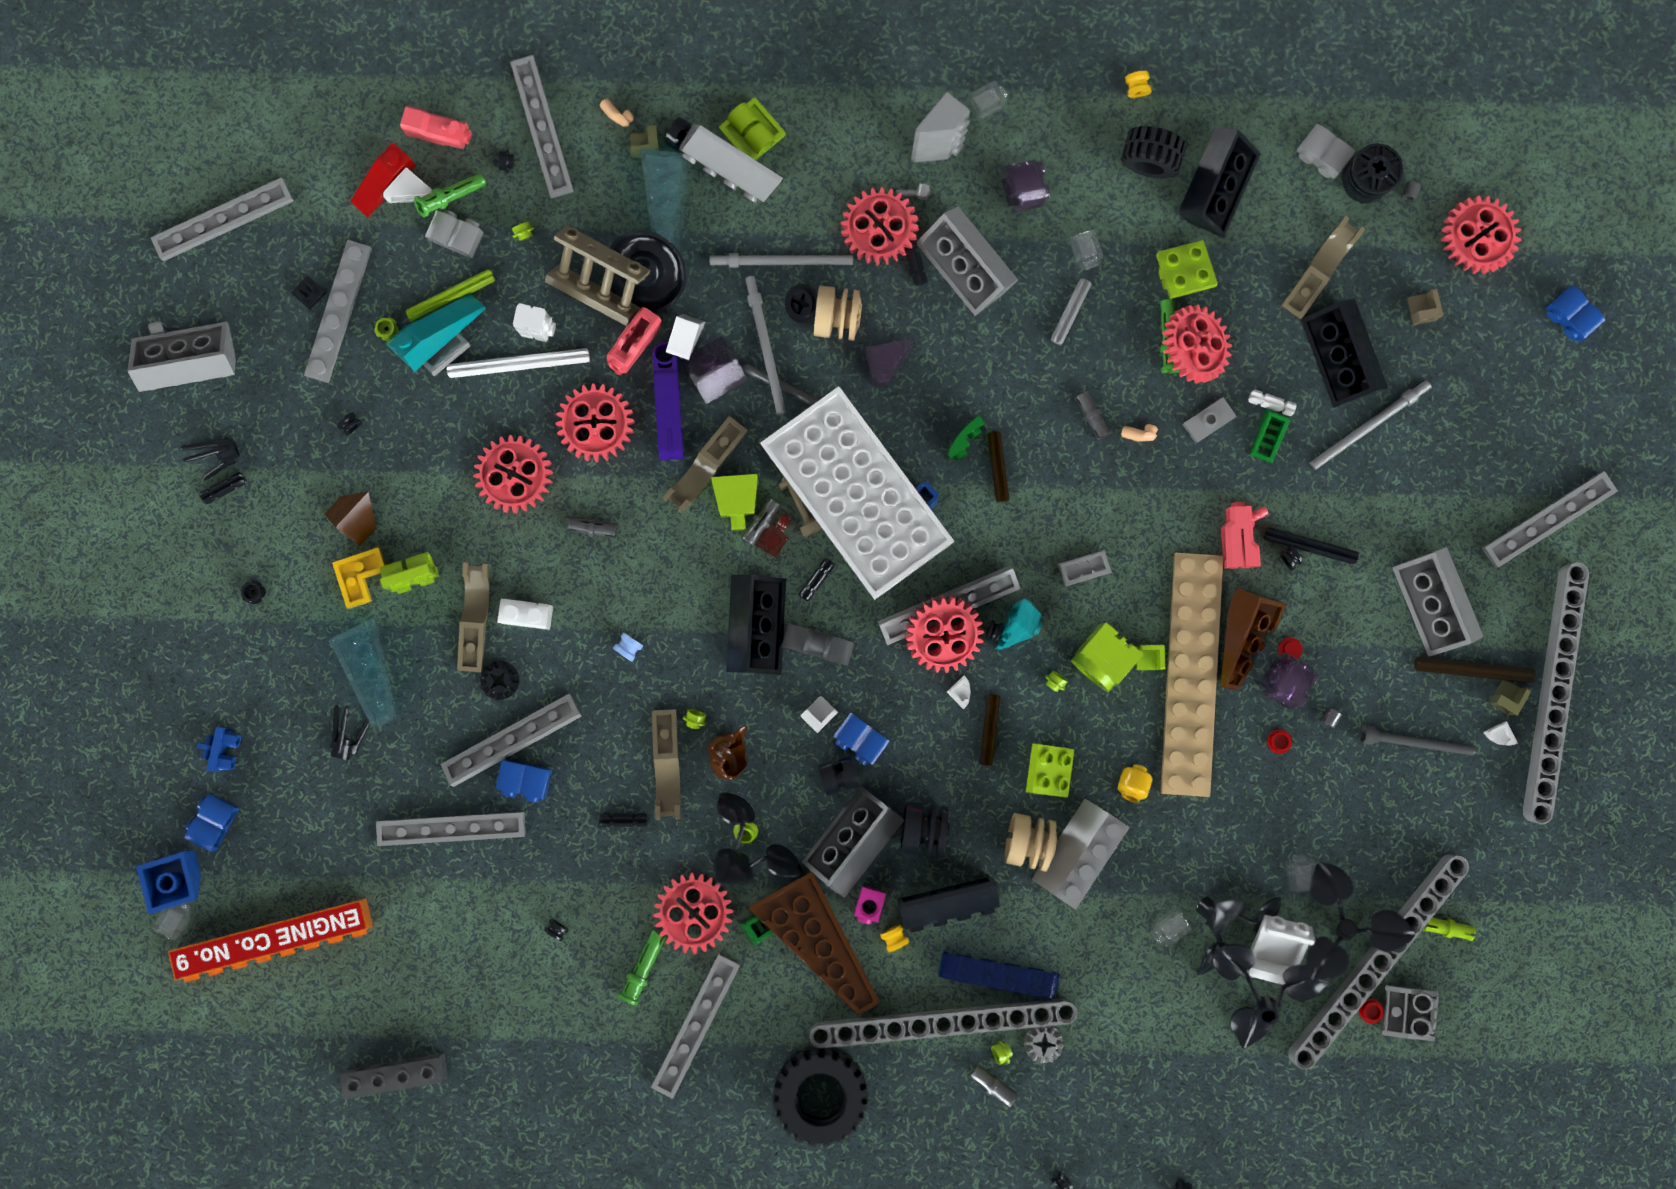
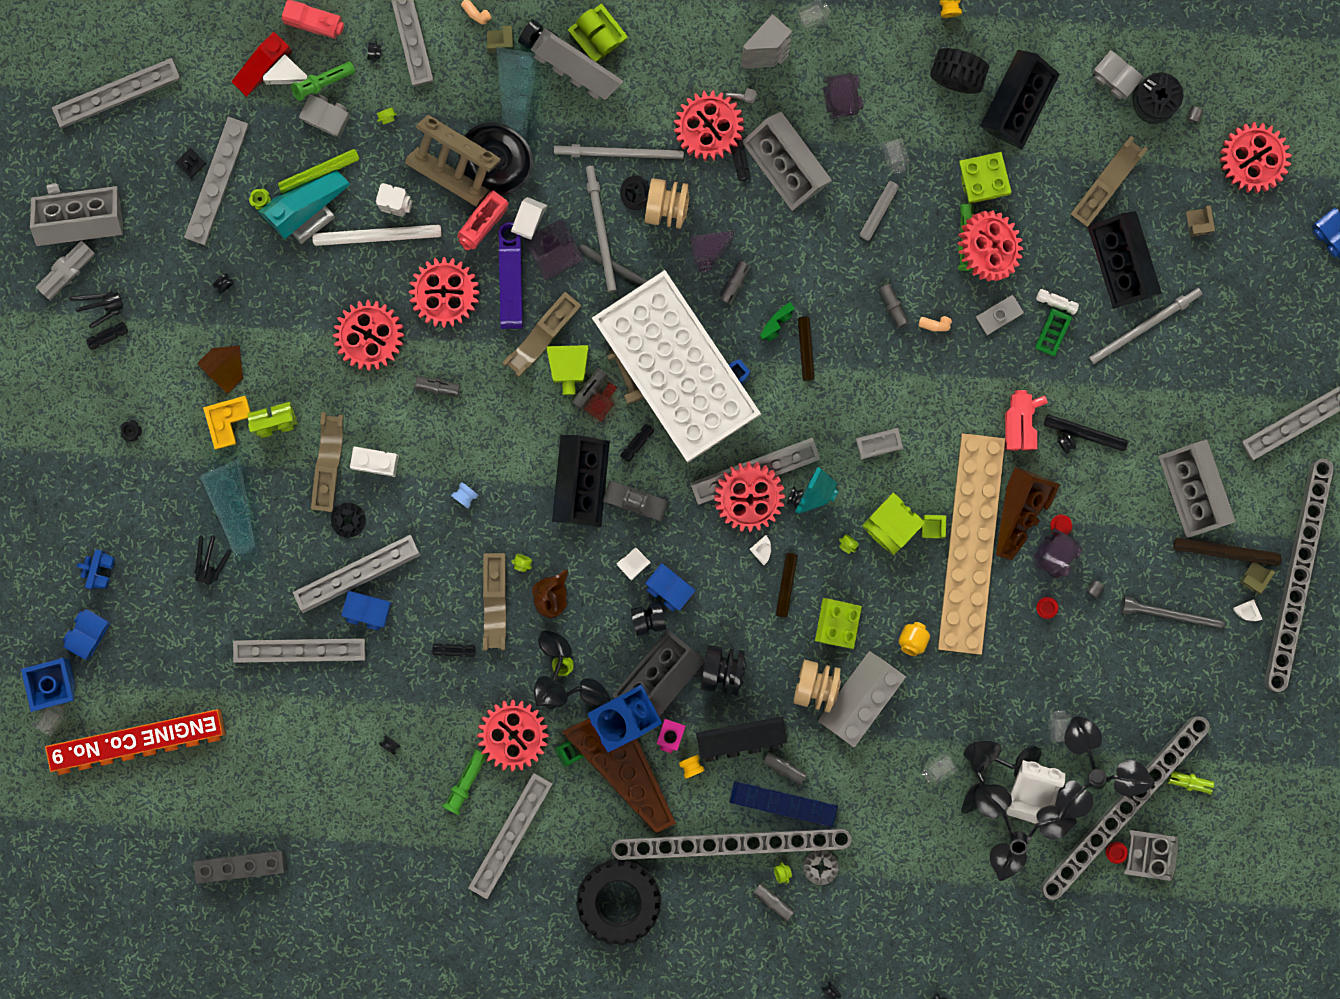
camera: 10 degrees right, 0 degrees up
(172, 417) = (65, 270): none -> light grey piece
(817, 891) = (638, 716): none -> blue brick
(917, 397) = (735, 282): none -> flat silver pin
(998, 934) = (784, 768): none -> dark grey pin

